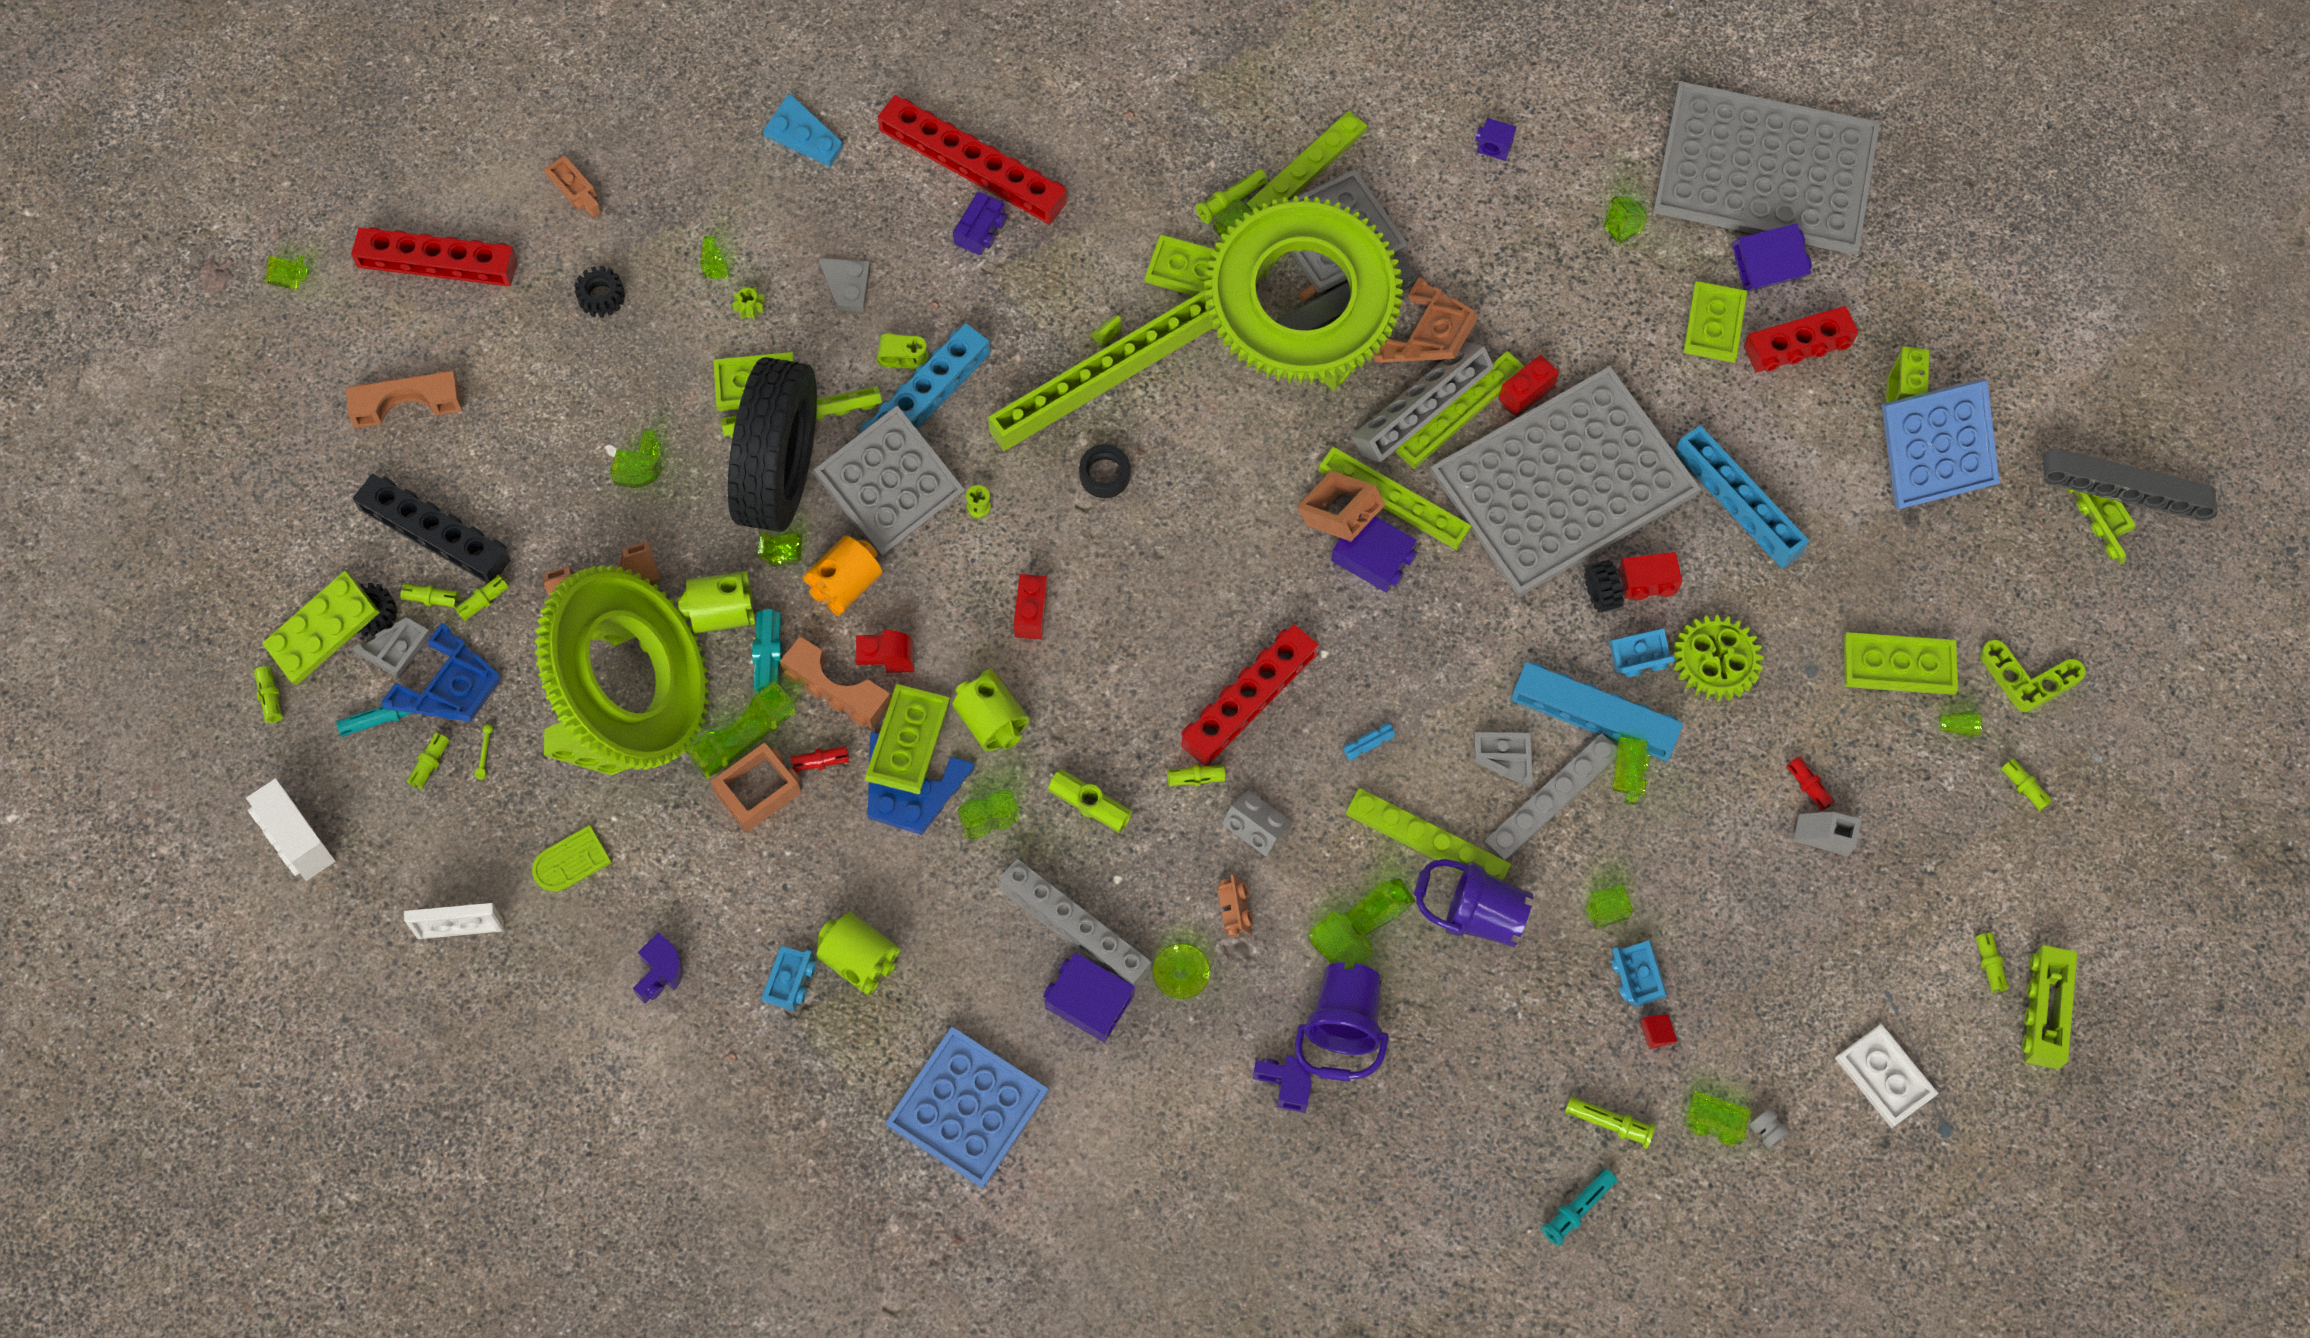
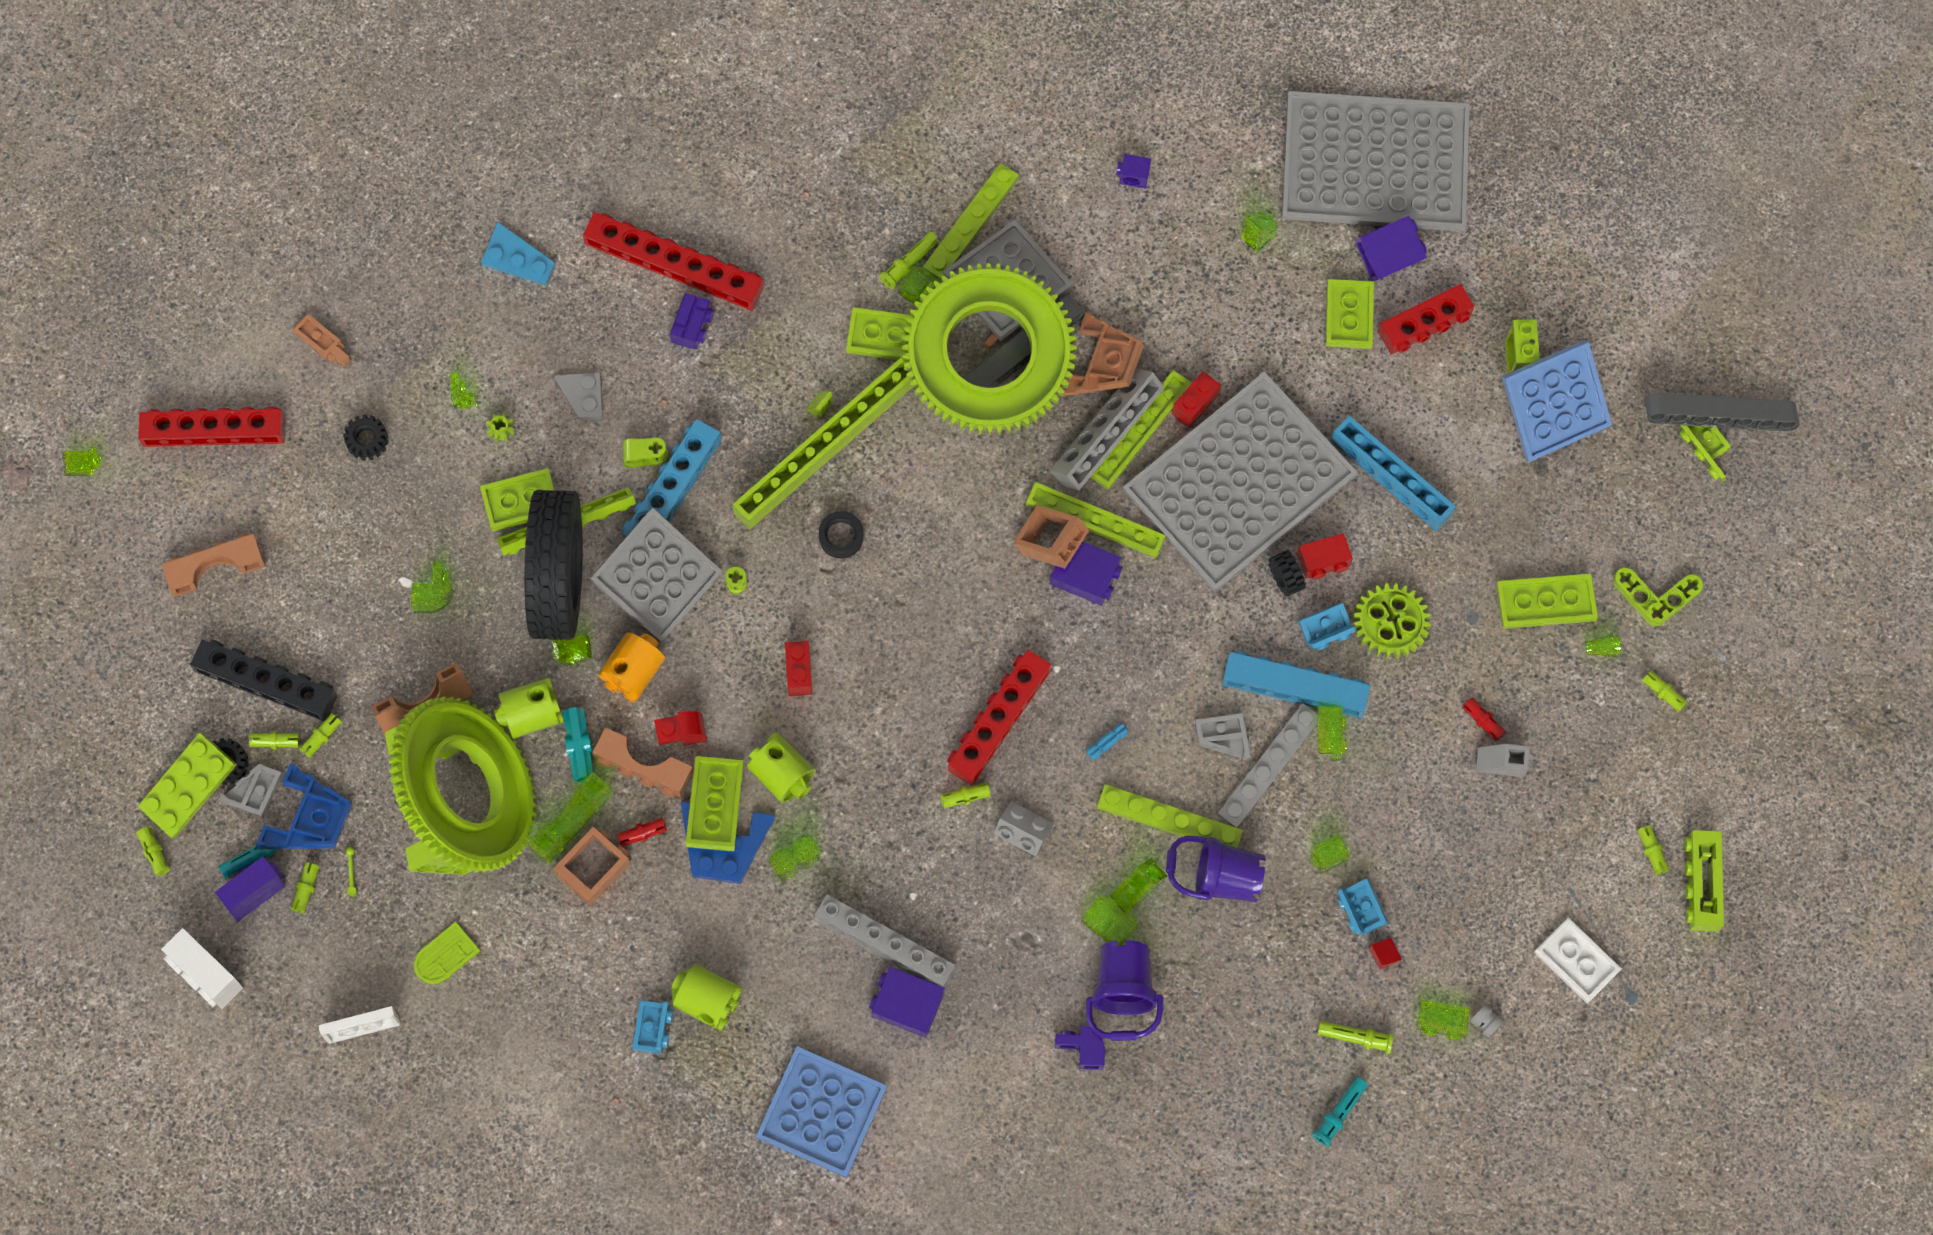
camera: 10 degrees left, 5 degrees up
(365, 749) = (251, 888): none -> dark purple brick
(664, 966) = (546, 1035): dark purple brick -> none
(1104, 810) = (864, 826): lime piece -> none
(1181, 957) = (980, 955): clear neon green dish -> none
(1234, 894) = (1022, 912): nougat hinge -> none

